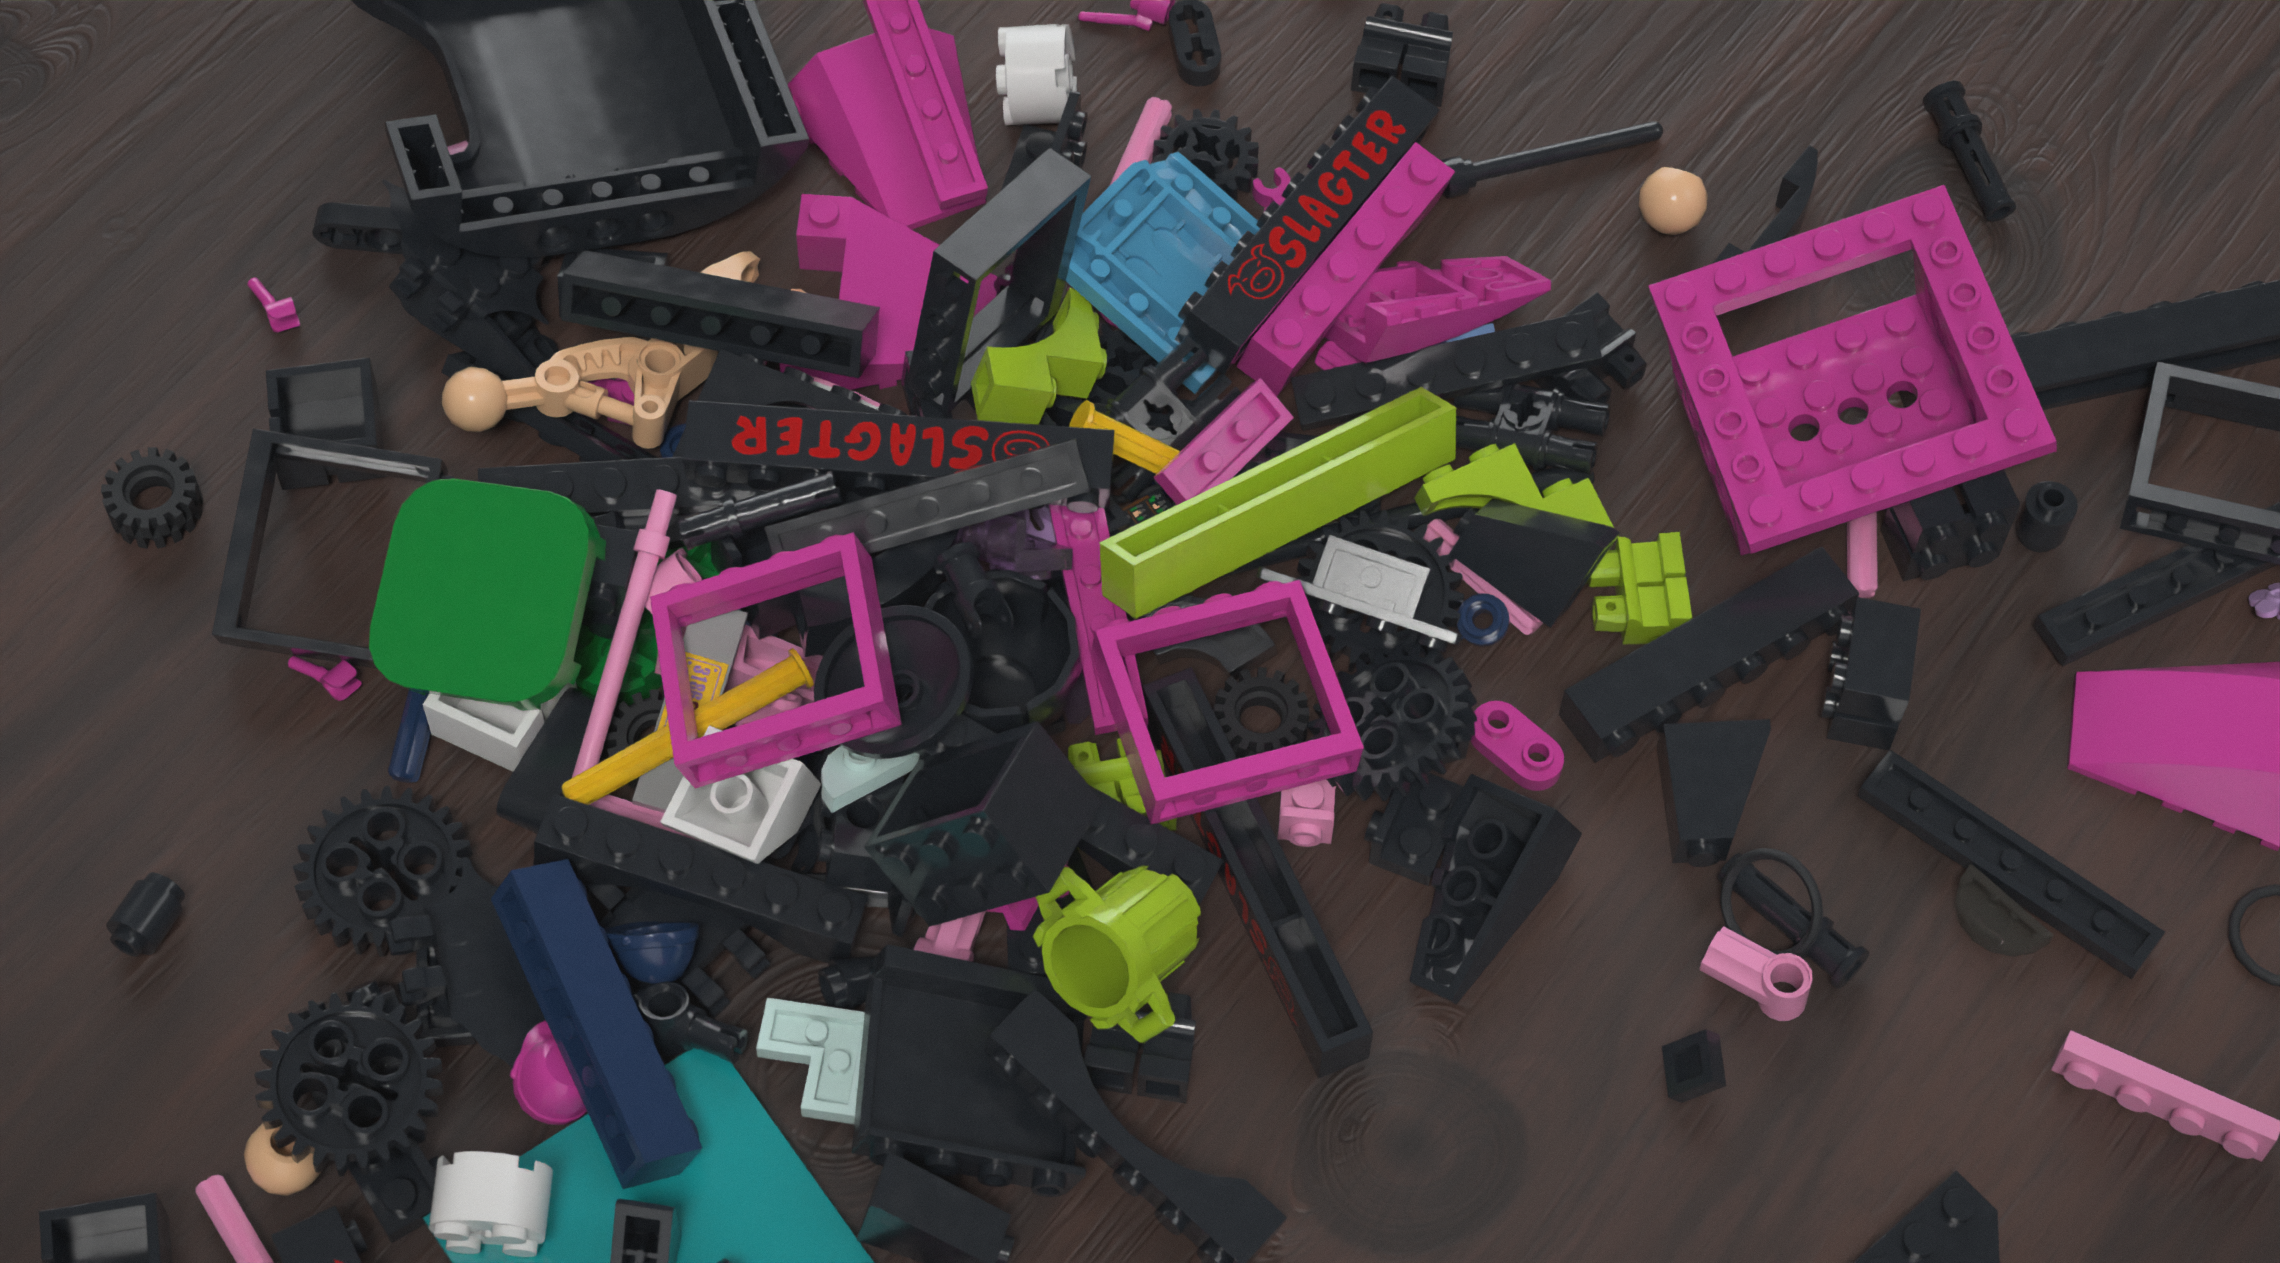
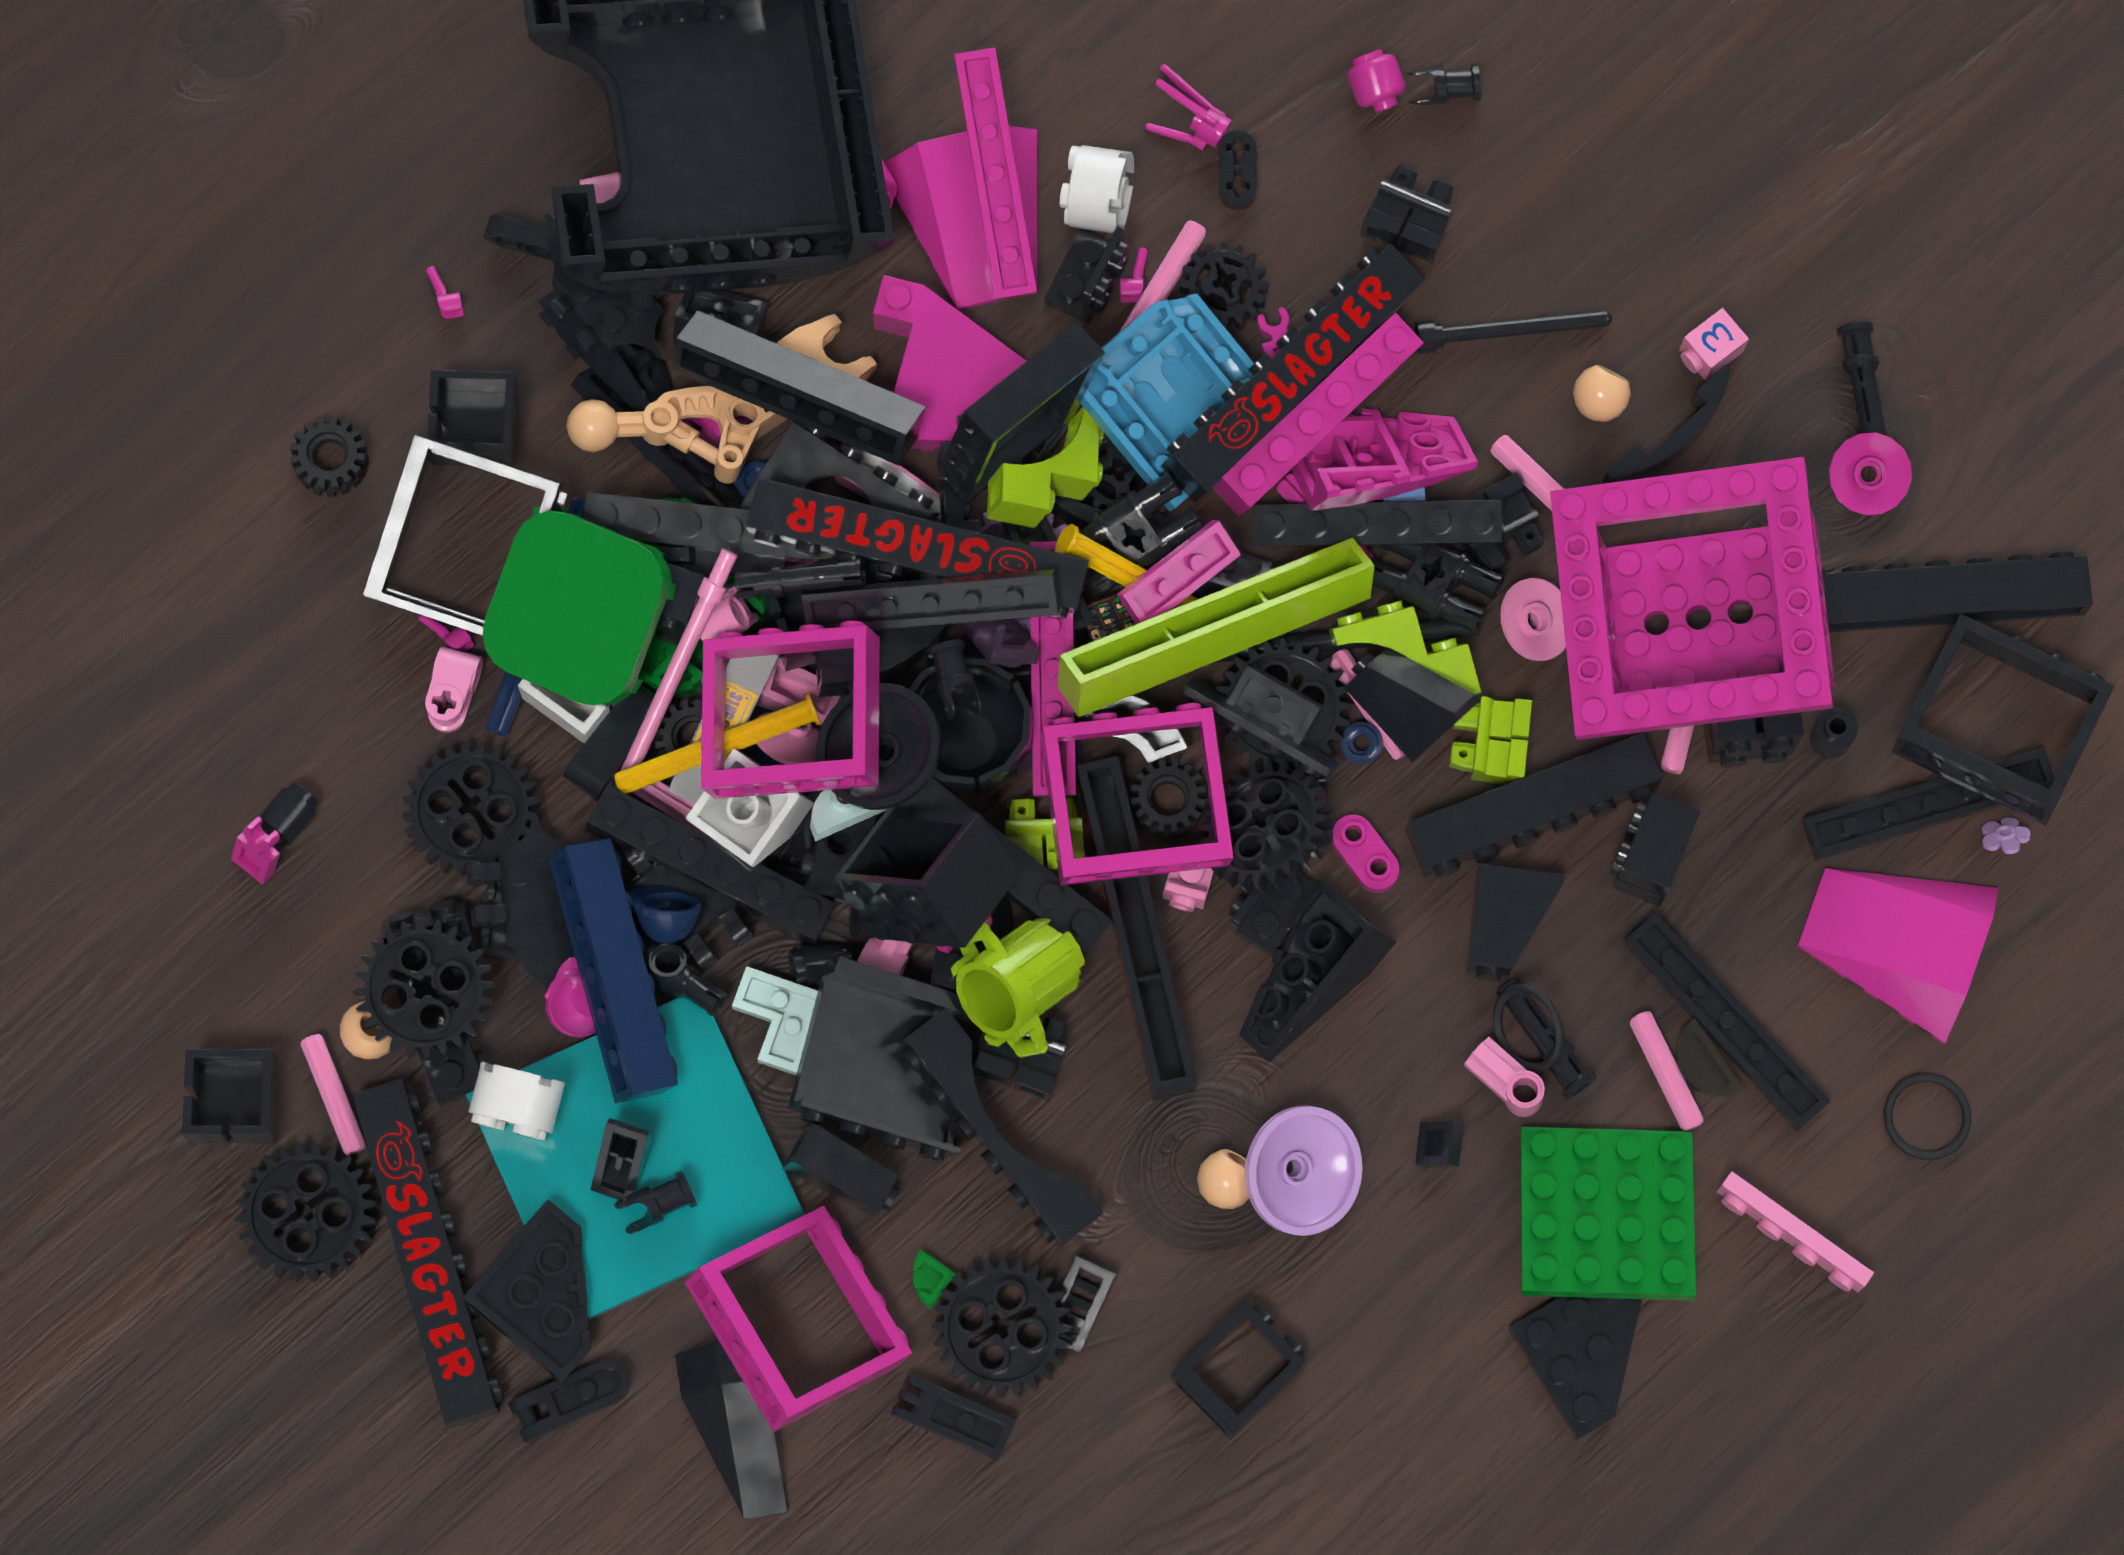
camera: 10 degrees right, 15 degrees up
(108, 963) = (256, 851): none -> dark pink plate
(340, 735) = (454, 682): none -> bright pink piece
(1101, 171) = (1132, 288): none -> dark pink hand
(1434, 1154) = (1223, 1179): none -> light nougat piece
(1552, 1115) = (1323, 1172): none -> lavender dish
(1623, 307) = (1529, 472): none -> bright pink axle
(1659, 449) = (1542, 605): none -> bright pink dish
(1786, 132) = (1713, 345): none -> bright pink brick
(1926, 1115) = (1607, 1213): none -> green plate
(1951, 935) = (1666, 1071): none -> bright pink axle
(2021, 224) = (1891, 473): none -> dark pink dish

